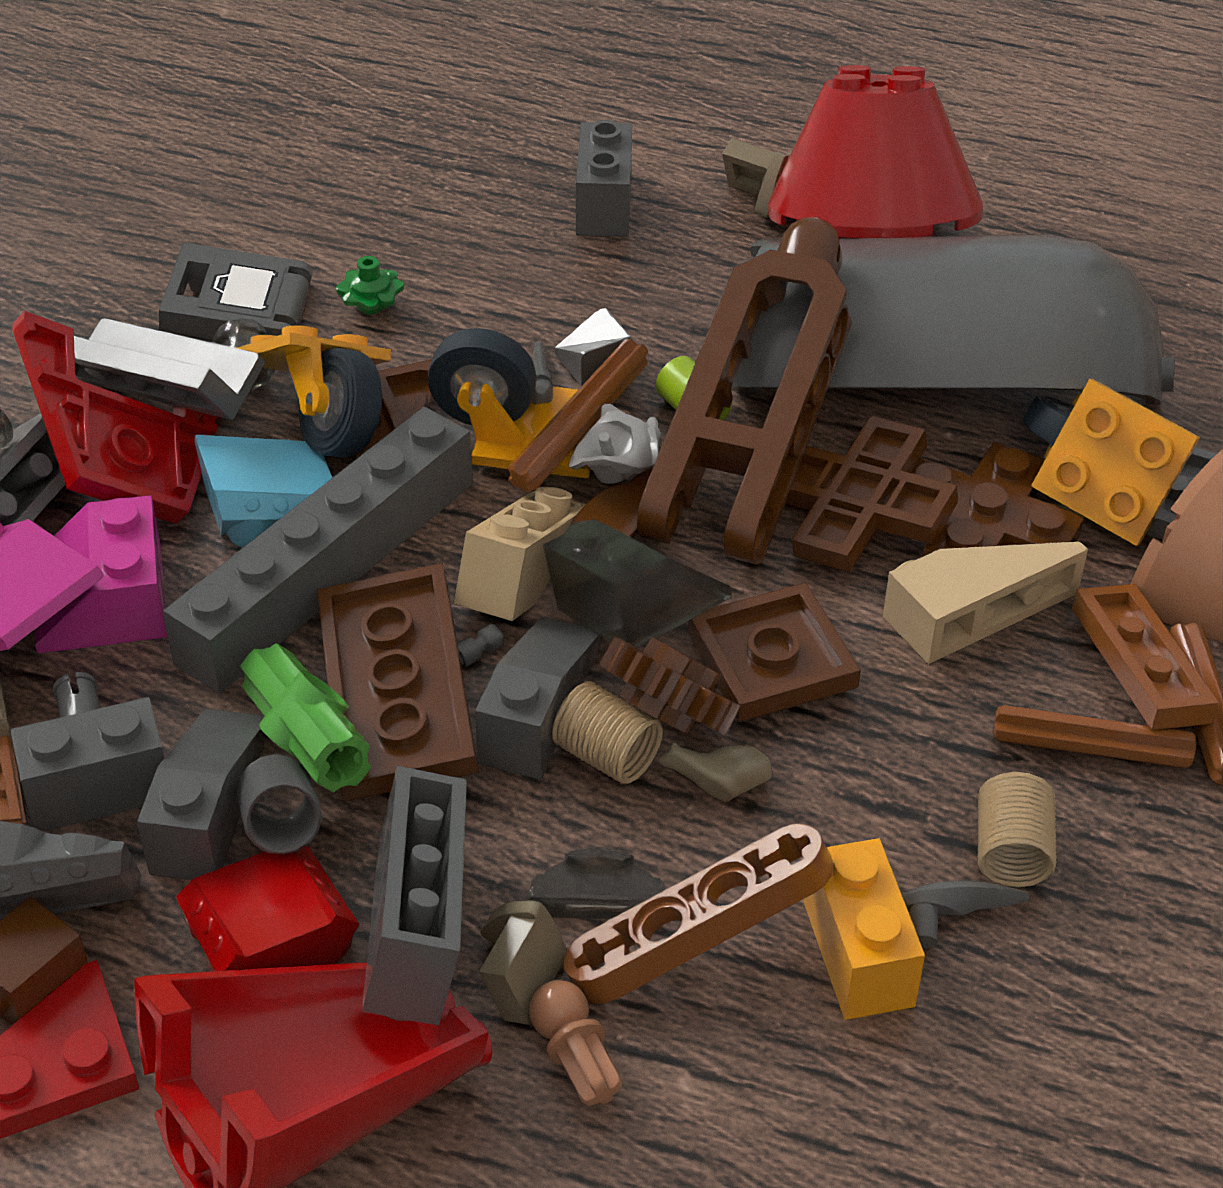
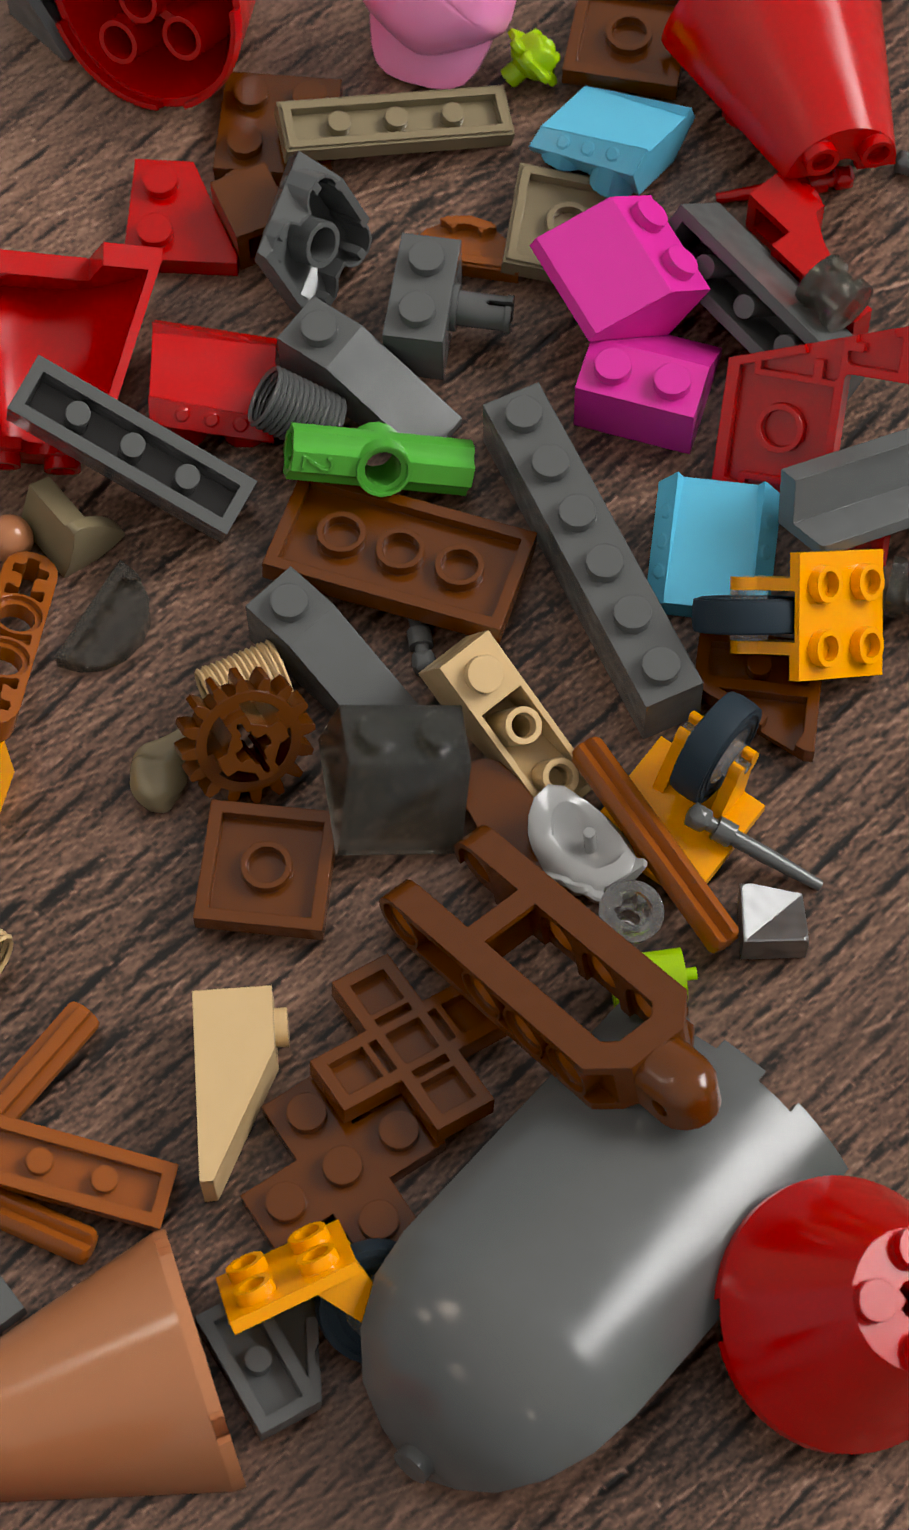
camera: 120 degrees right, 20 degrees up
(658, 390) = (632, 903): none -> clear cone

